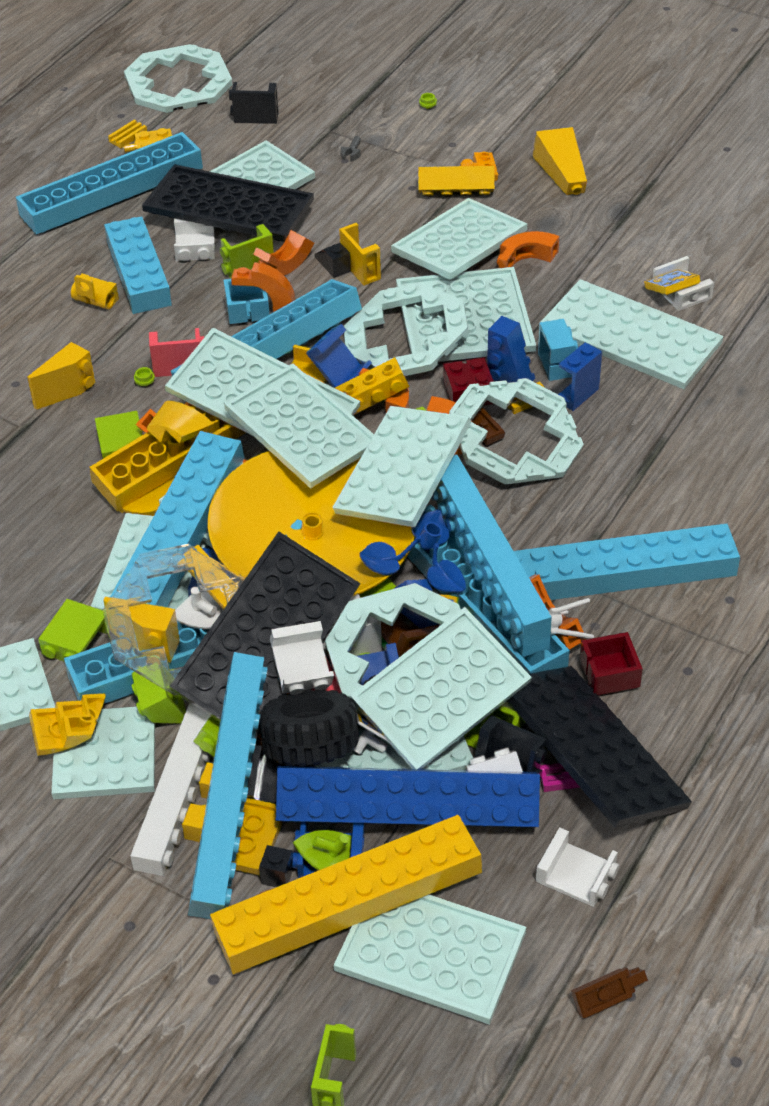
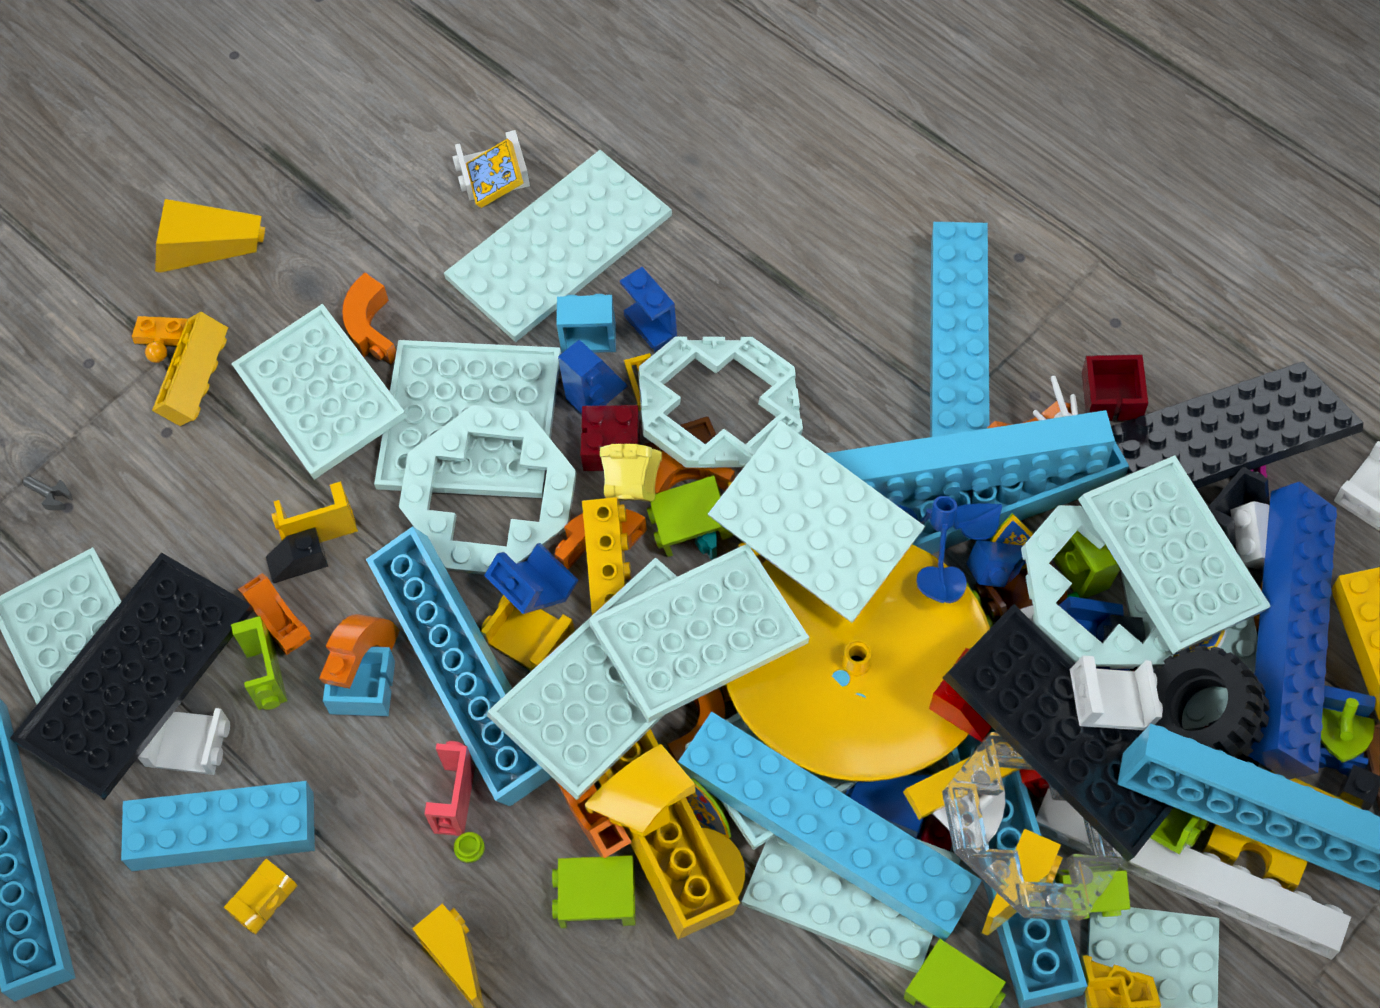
camera: 75 degrees left, 15 degrees up
(435, 392) = (630, 471): none -> light yellow piece

